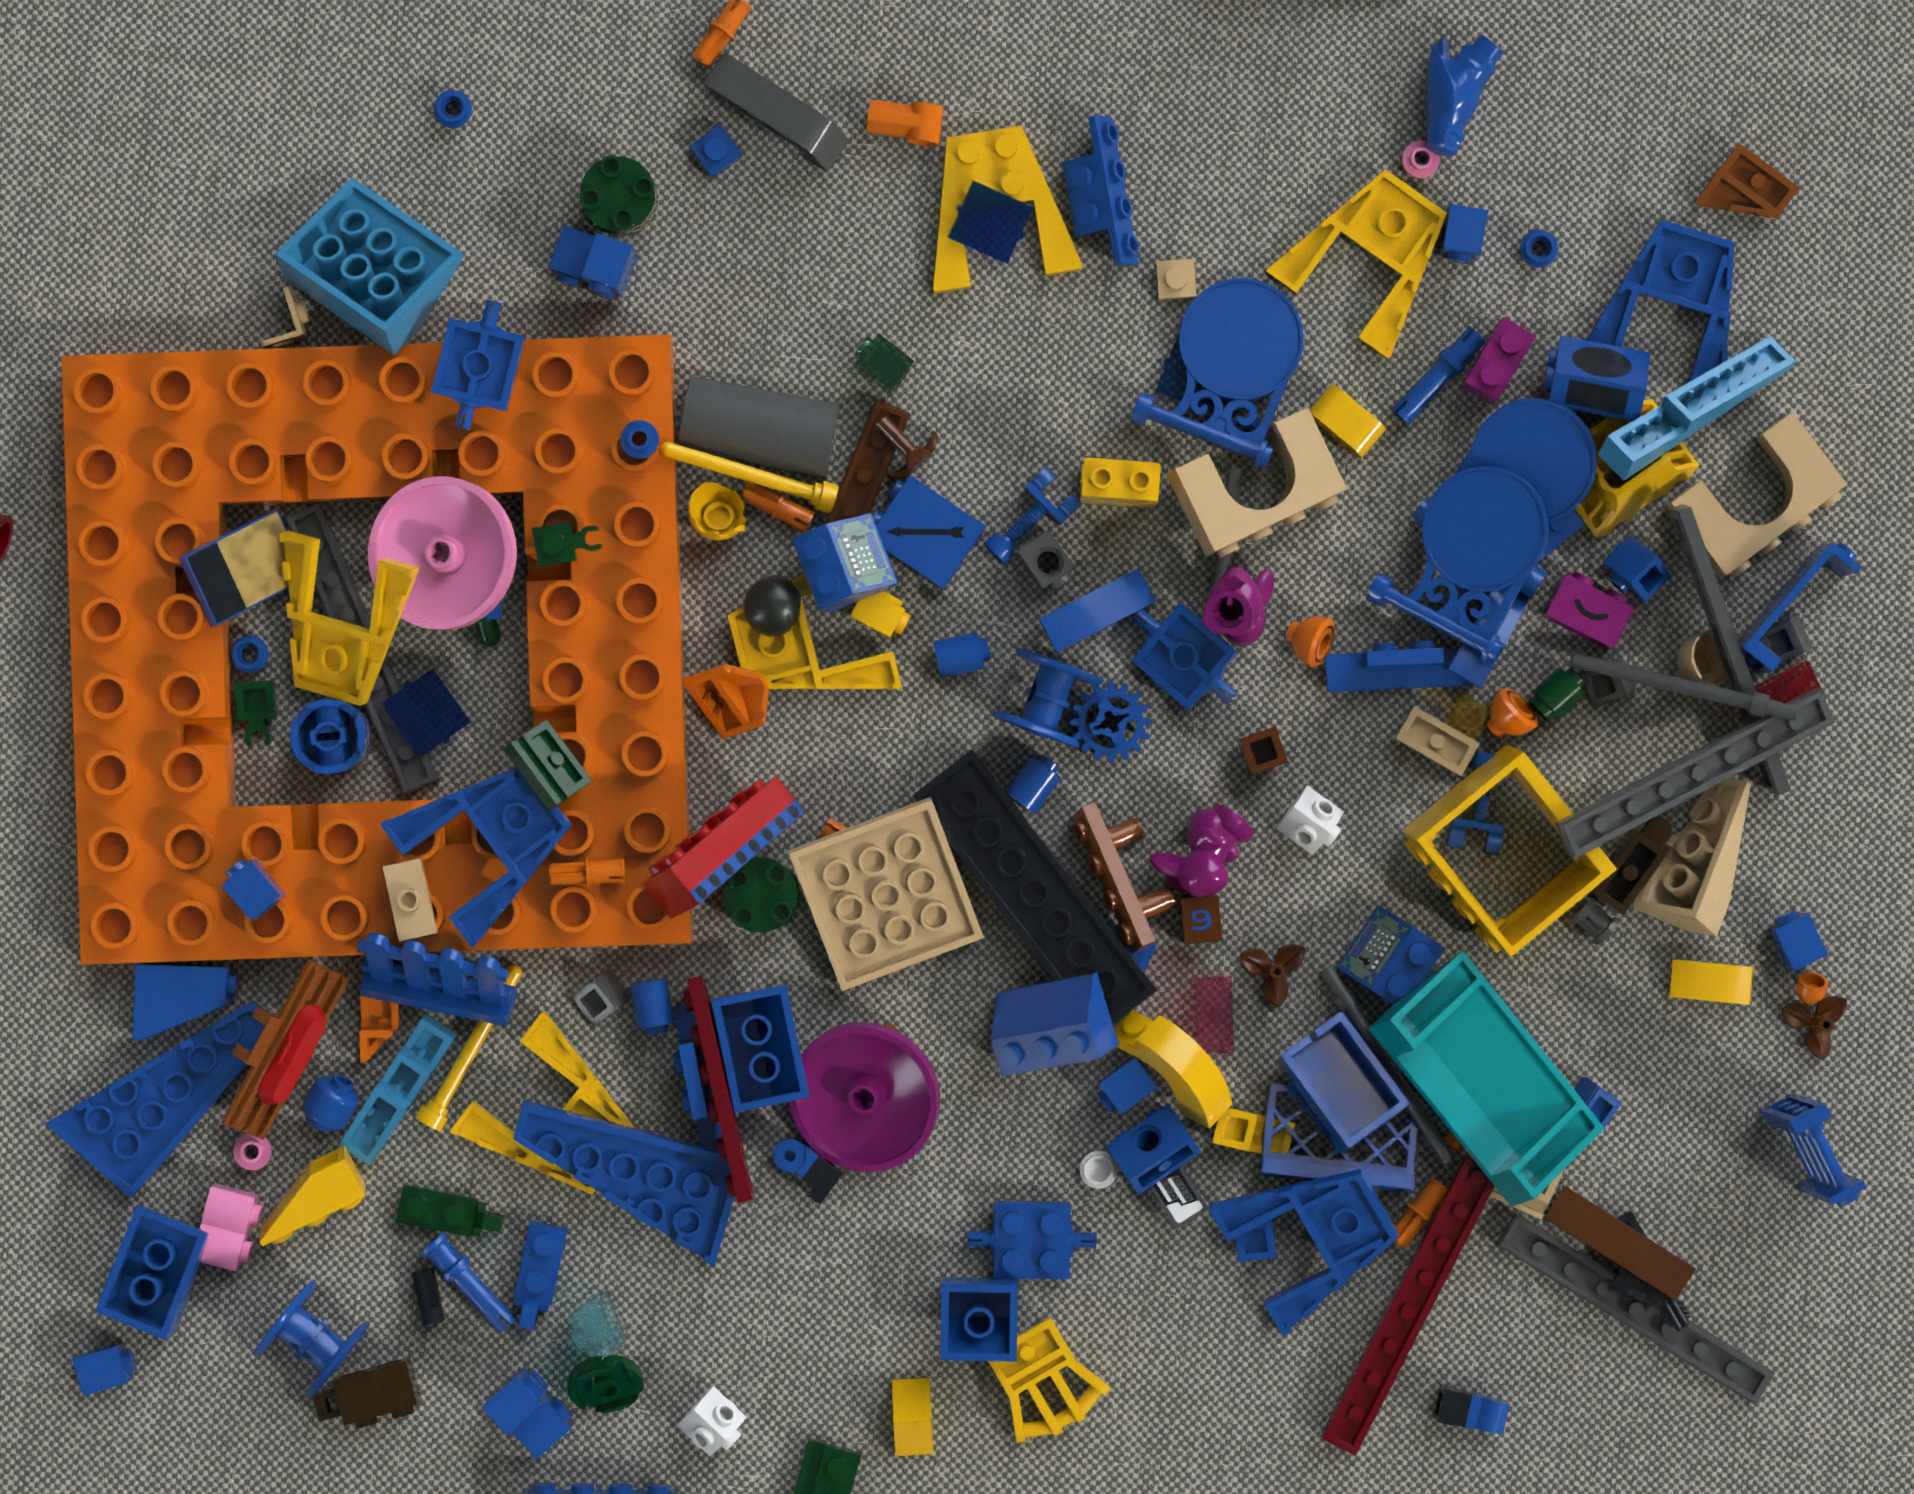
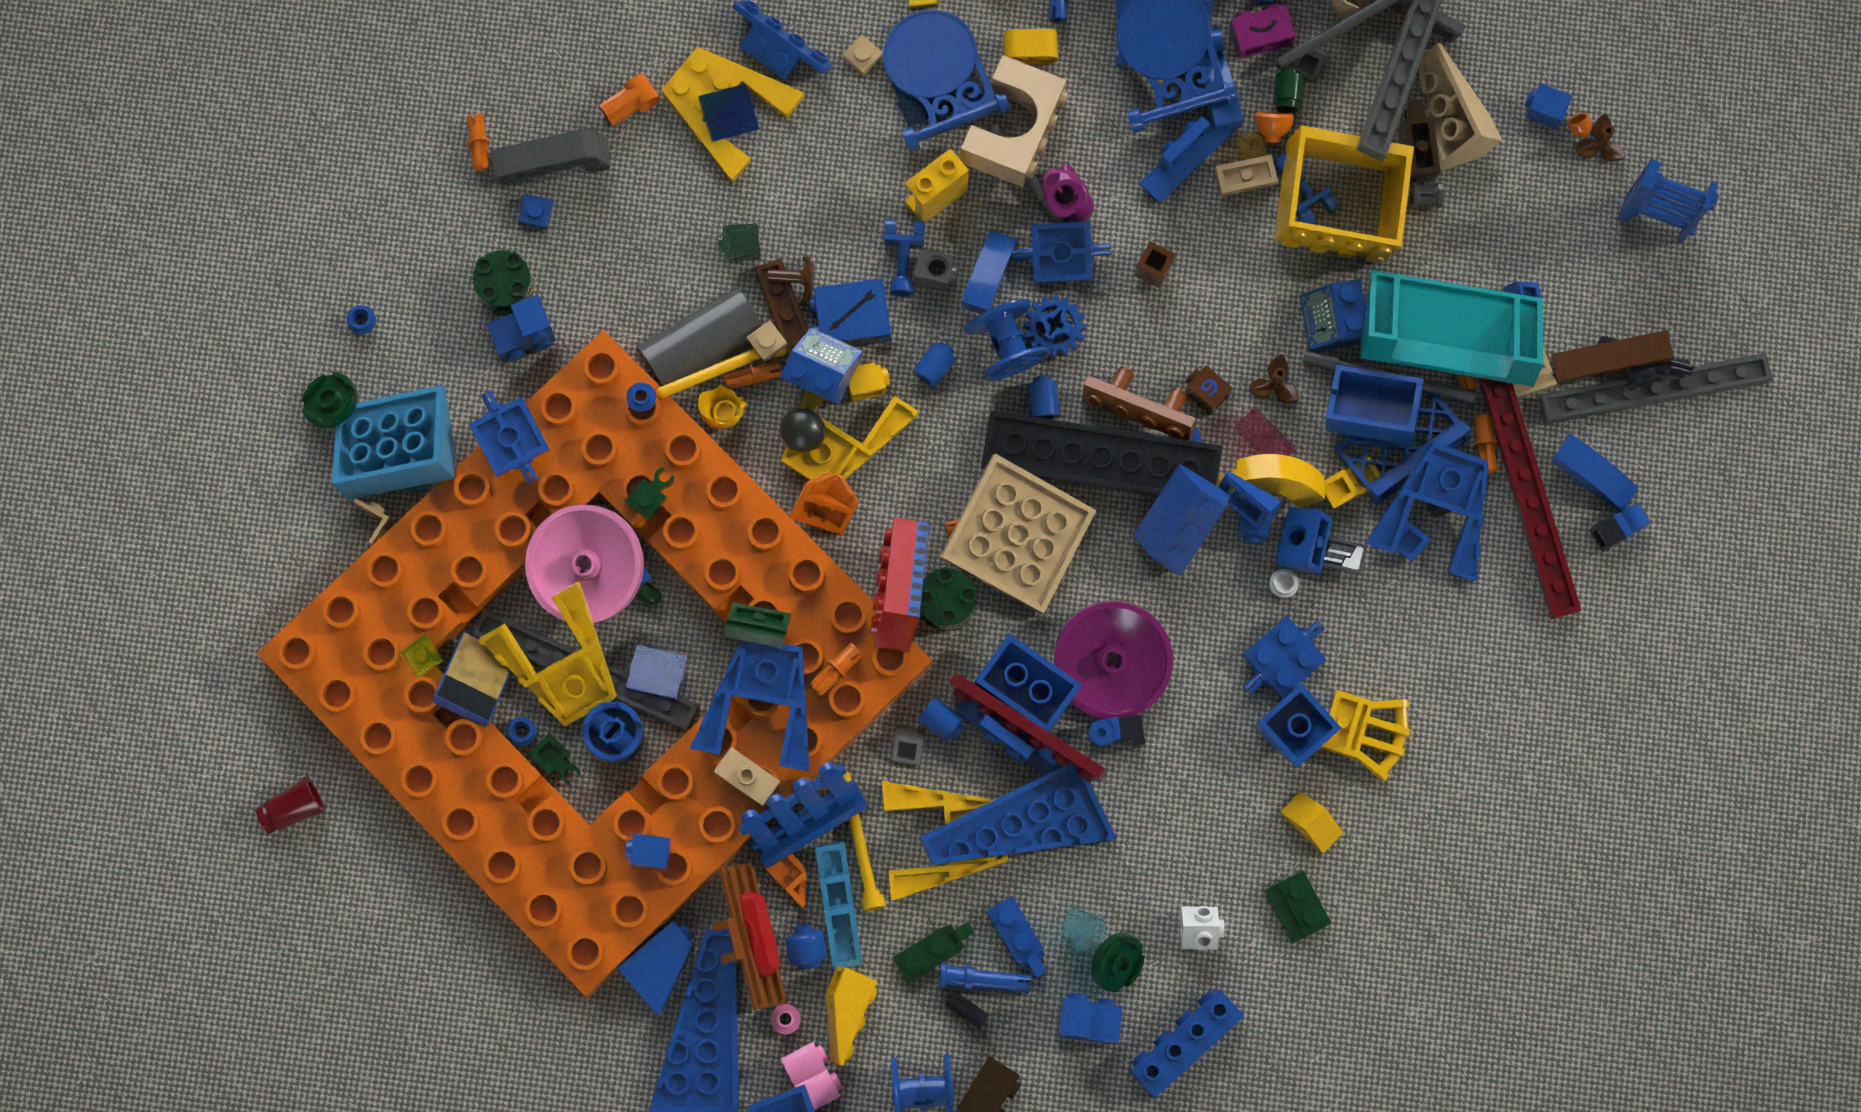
camera: 45 degrees left, 10 degrees down
(210, 502) = (421, 656): none -> clear neon green tile
(350, 164) = (329, 400): none -> dark green tile
(817, 487) = (767, 341): none -> tan plate
(1131, 1067) = (1256, 505): none -> blue slope
(1212, 840) = (1174, 339): magenta animal -> none
(1311, 821) = (1219, 279): white brick -> none
(1312, 639) = (1123, 181): orange brick -> none
(1495, 1337) = (1594, 473): none -> blue slope
(1711, 982) = (1523, 171): yellow slope -> none

